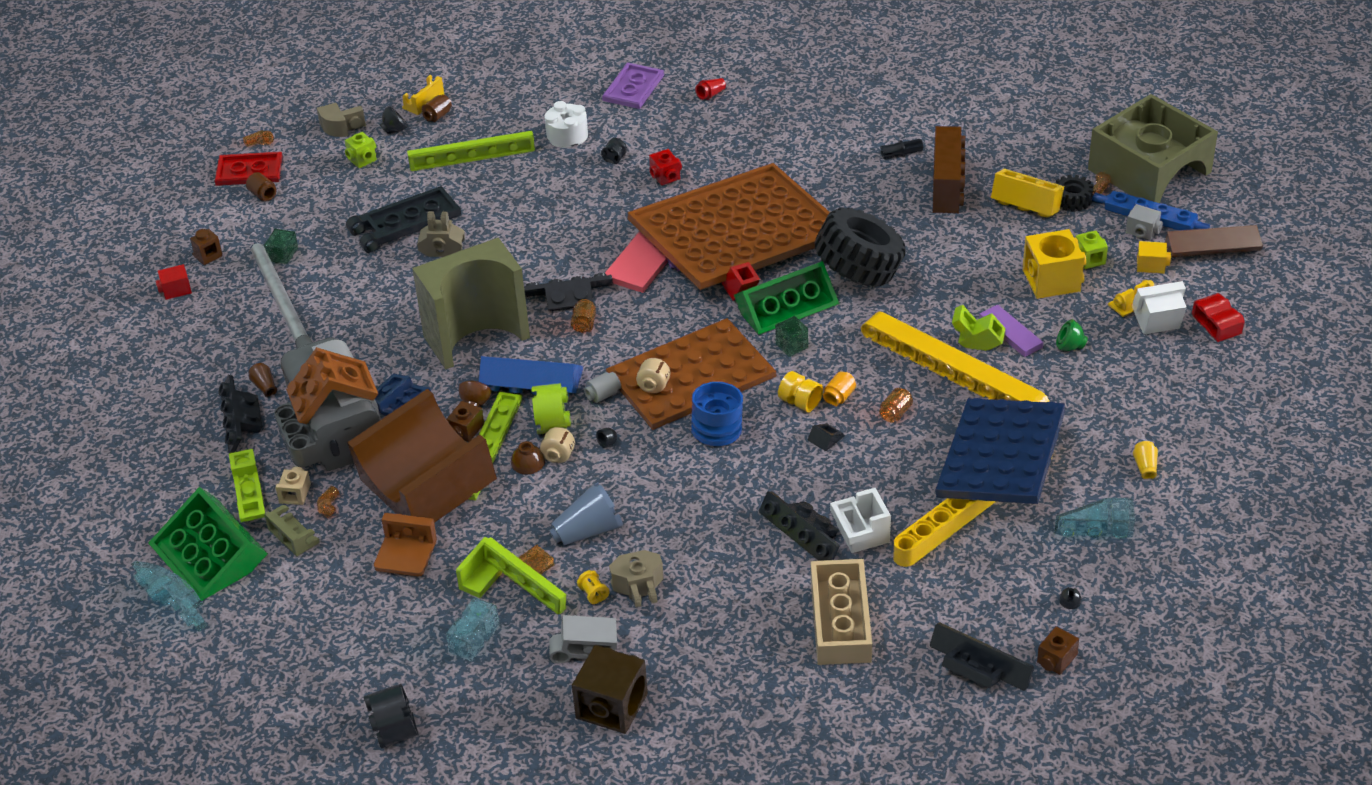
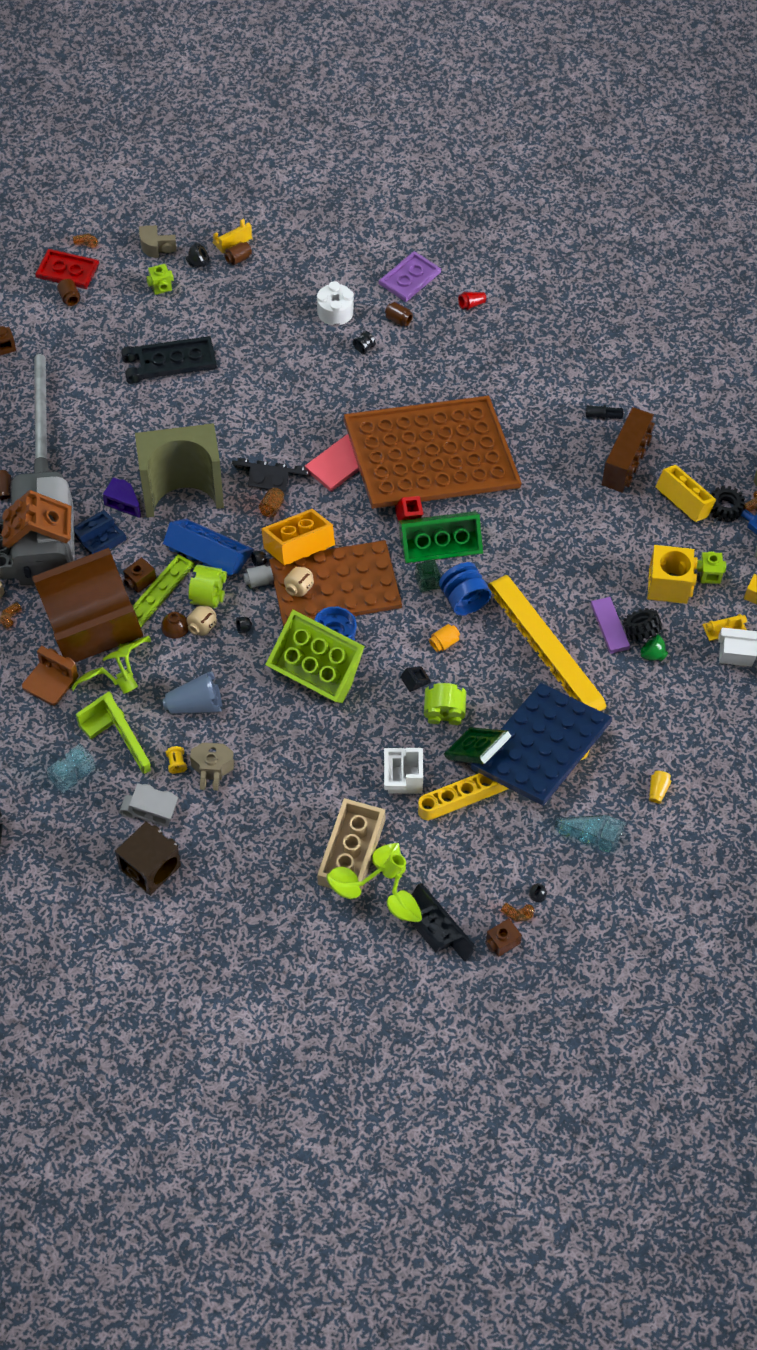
camera: 15 degrees right, 15 degrees up
(281, 246) = (62, 358): clear green brick -> none
(411, 354) = (121, 497): none -> dark purple slope
(440, 236) = (189, 389): dark tan hinge -> none
(471, 150) = (248, 306): lime tile -> none
(474, 392) = (156, 552): reddish brown brick -> none
(495, 523) = (125, 677): none -> lime plant
(537, 559) = (143, 722): clear orange plate -> none
(592, 369) = (258, 558): none -> black hinge
(632, 335) = (298, 536): none -> light orange brick
(639, 118) = (398, 314): none -> reddish brown brick
(664, 167) = (397, 373): red brick -> none
(710, 436) = (316, 656): none -> lime slope
(801, 392) = (410, 632): yellow wheel -> none
(802, 525) = (360, 757): black bracket -> none
(840, 334) = (465, 588): none -> blue wheel
(860, 247) = (504, 522): black tyre -> none
(874, 444) = (445, 703): none -> lime brick
(895, 405) = (482, 668): clear orange brick -> none
(898, 615) = (392, 865): none -> lime plant
(932, 471) = (477, 745): none -> dark green tile
(977, 334) = (579, 621): lime brick -> none
(1047, 316) = (642, 624): none -> black tyre
(1066, 623) = (518, 915): none -> clear orange arm

